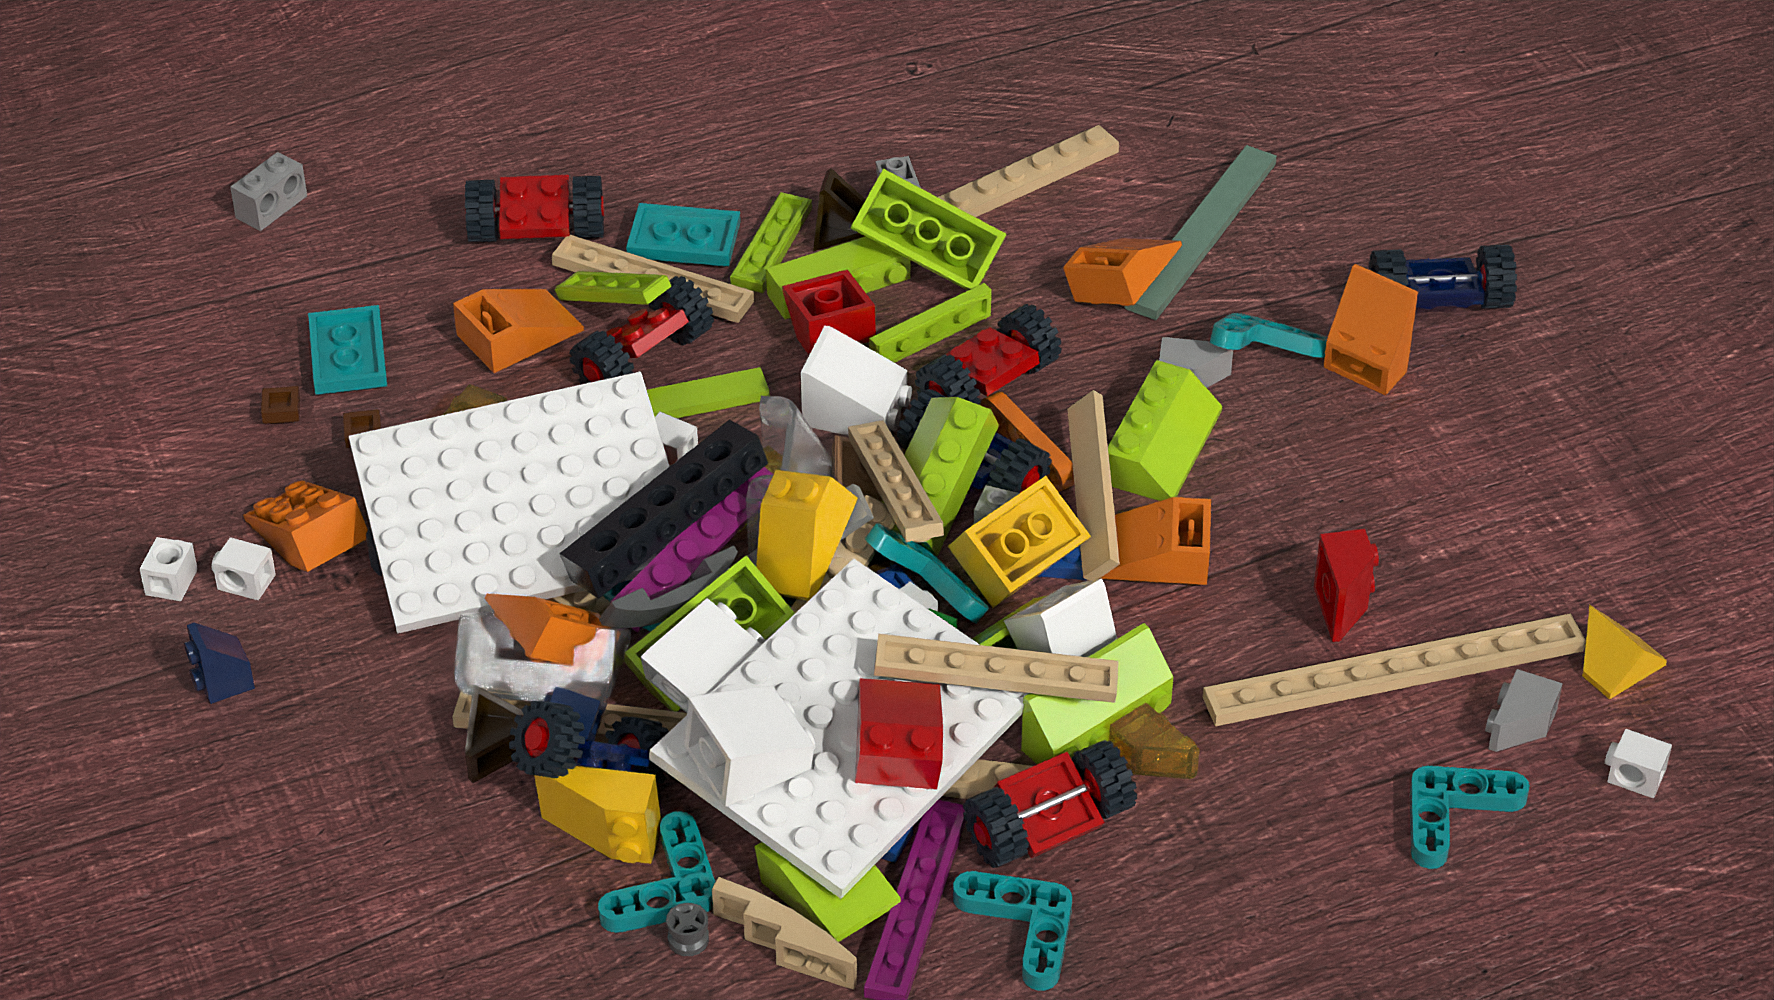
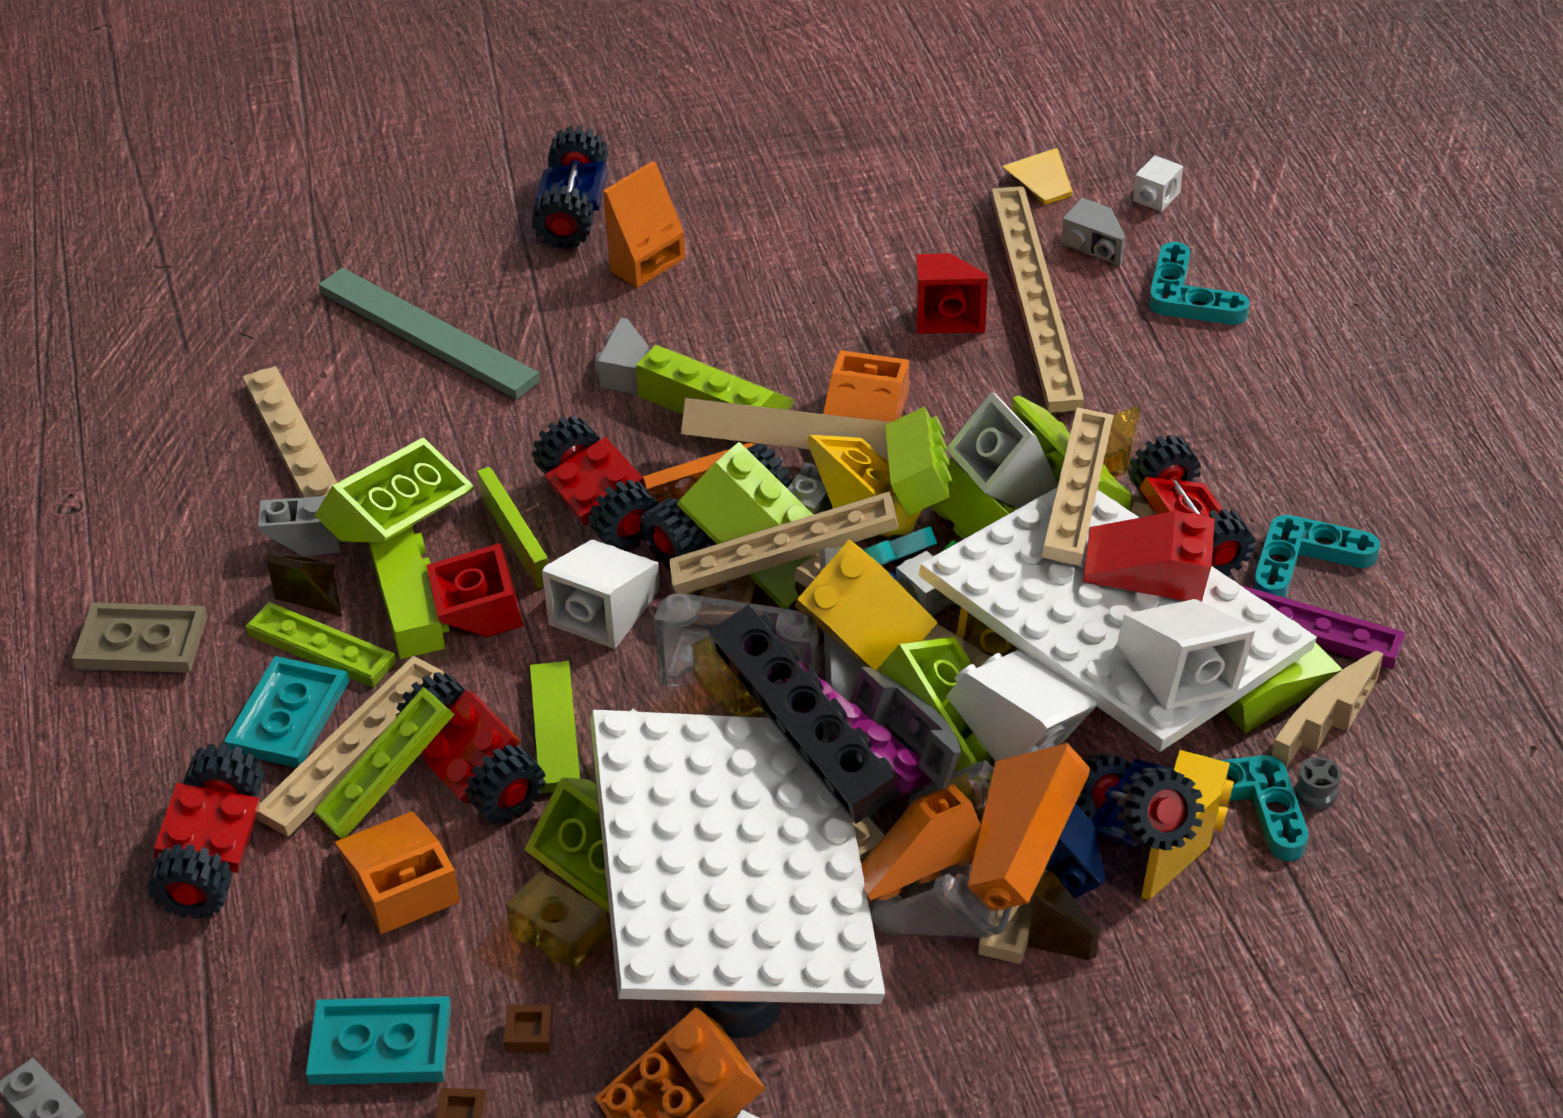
camera: 80 degrees left, 0 degrees up
(540, 663) = (1023, 821): none -> orange slope
(755, 136) = (140, 637): none -> dark tan plate
(1026, 557) = (917, 460): none -> lime brick
(1117, 269) = (482, 378): orange slope -> none
(1241, 329) = (605, 305): teal beam -> none

